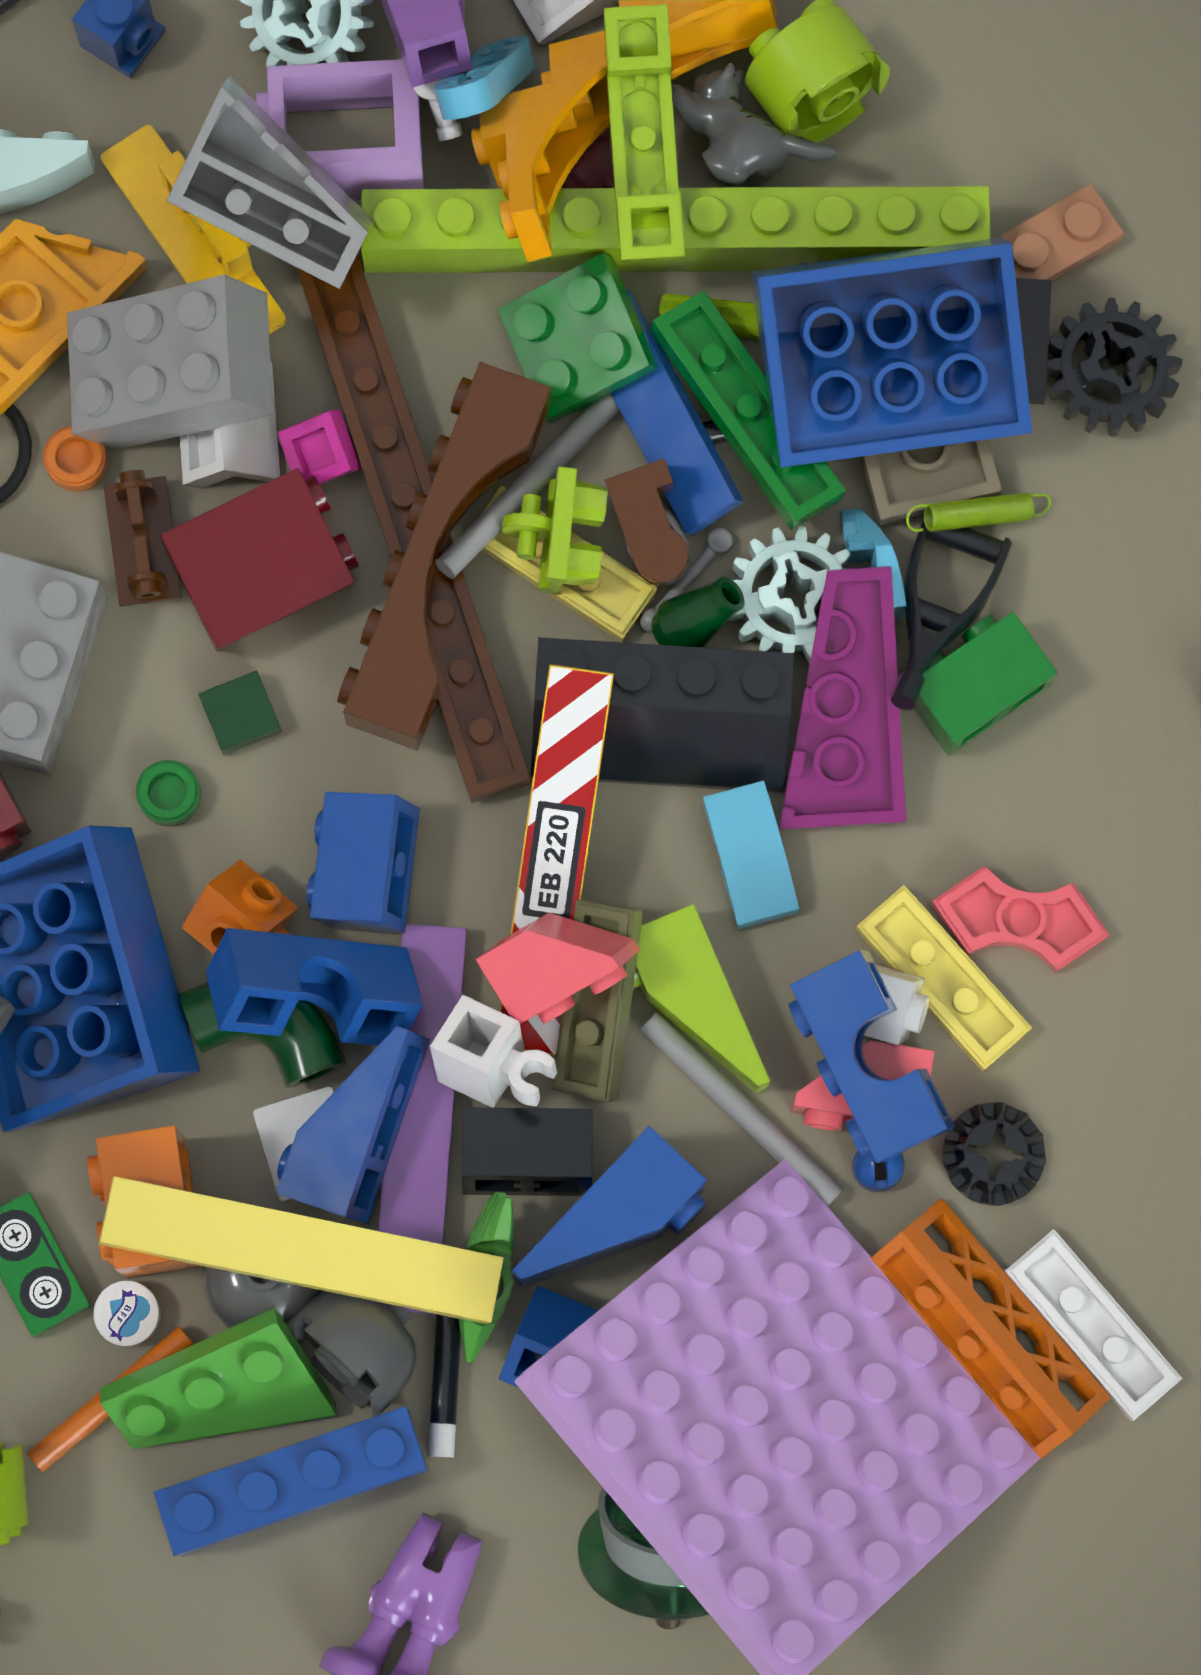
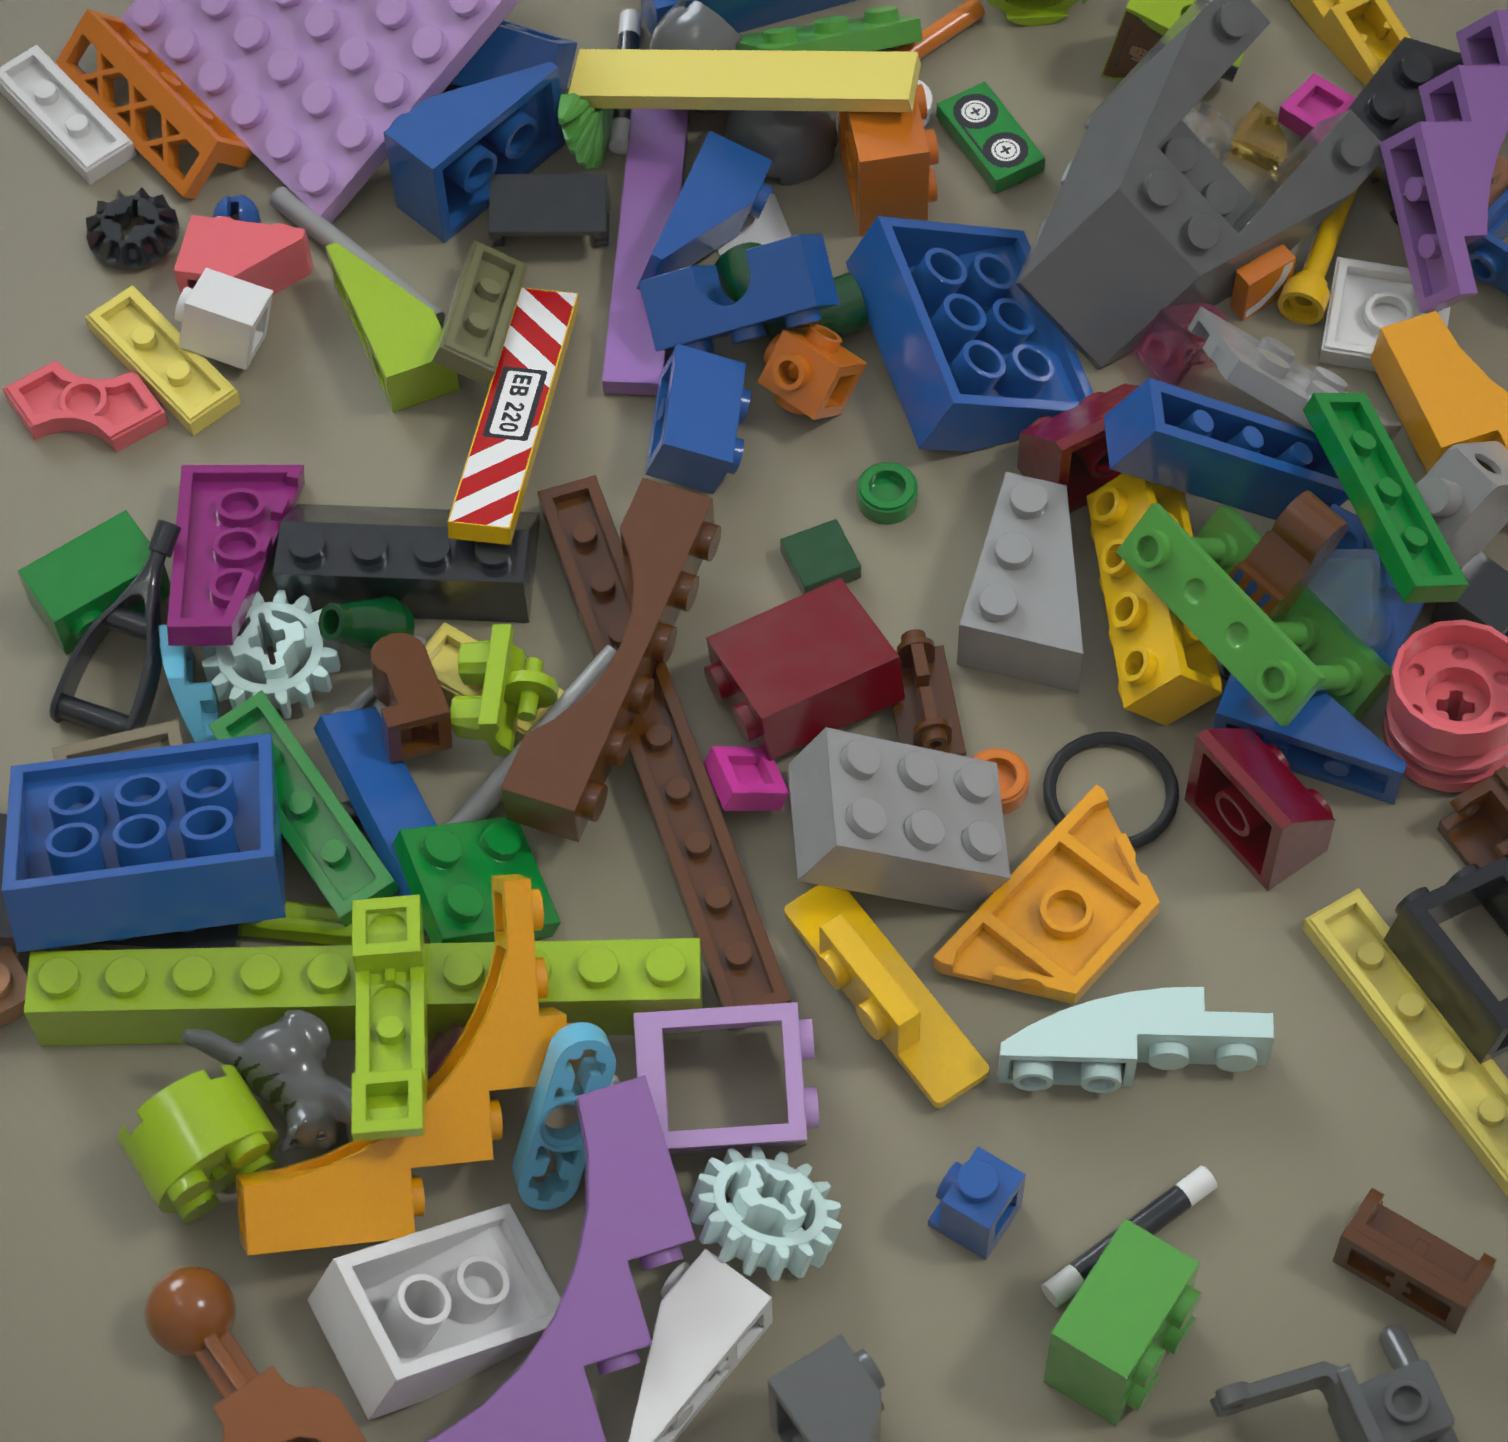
camera: 175 degrees left, 20 degrees down
(268, 190) = (794, 946): light grey wedge -> none
(484, 1053) = (583, 255): white brick -> none
(550, 961) = (513, 307): coral slope -> none
(751, 855) = (332, 446): medium azure slope -> none
(839, 1009) = (248, 268): blue arch -> none
(978, 511) = (79, 728): lime piece -> none

